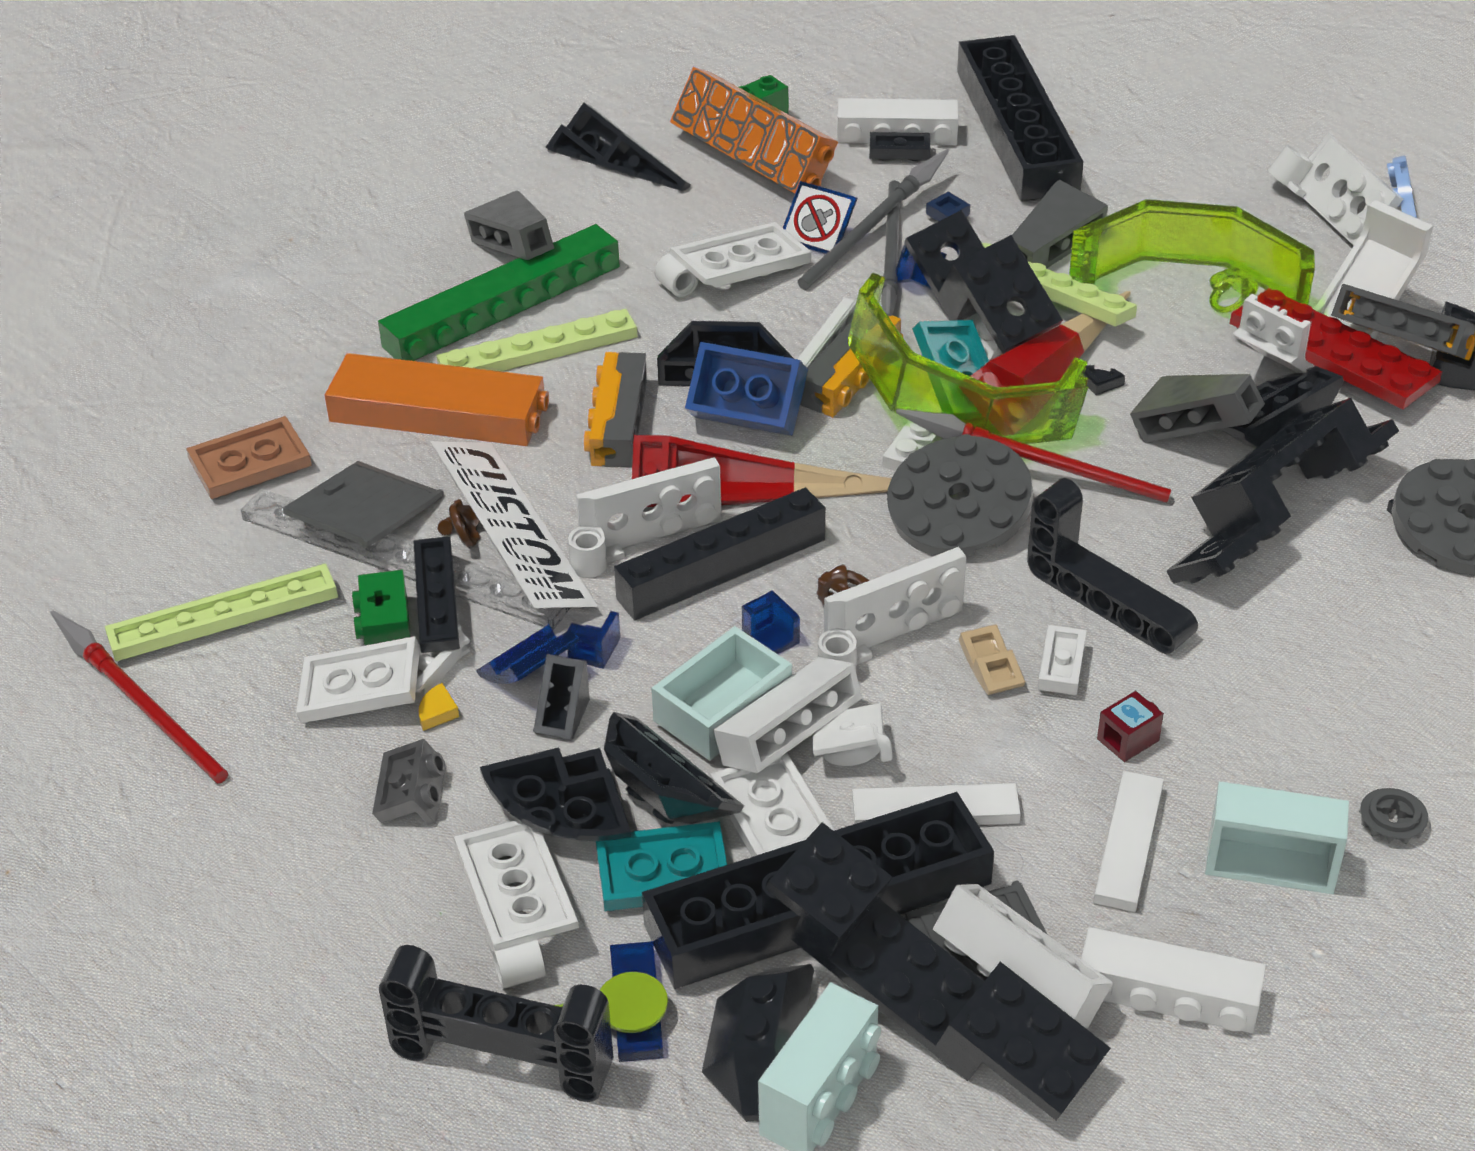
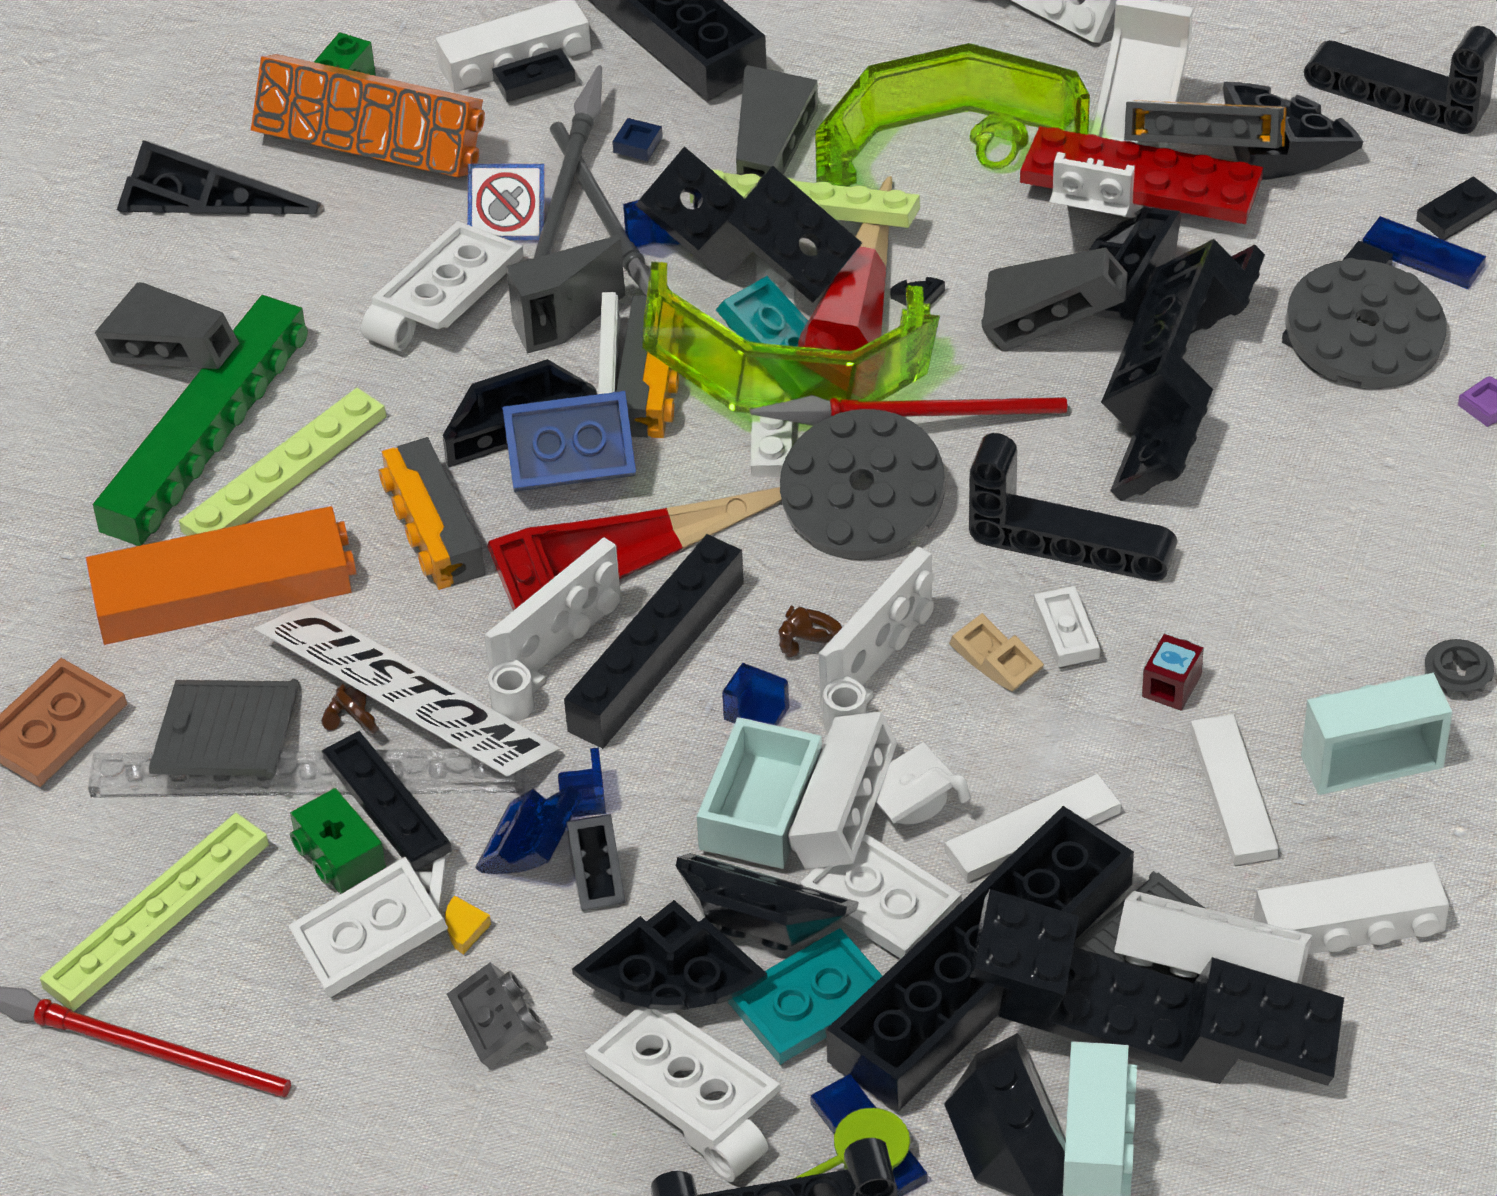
camera: 25 degrees left, 5 degrees up
(811, 286) = (563, 291): none -> dark grey slope

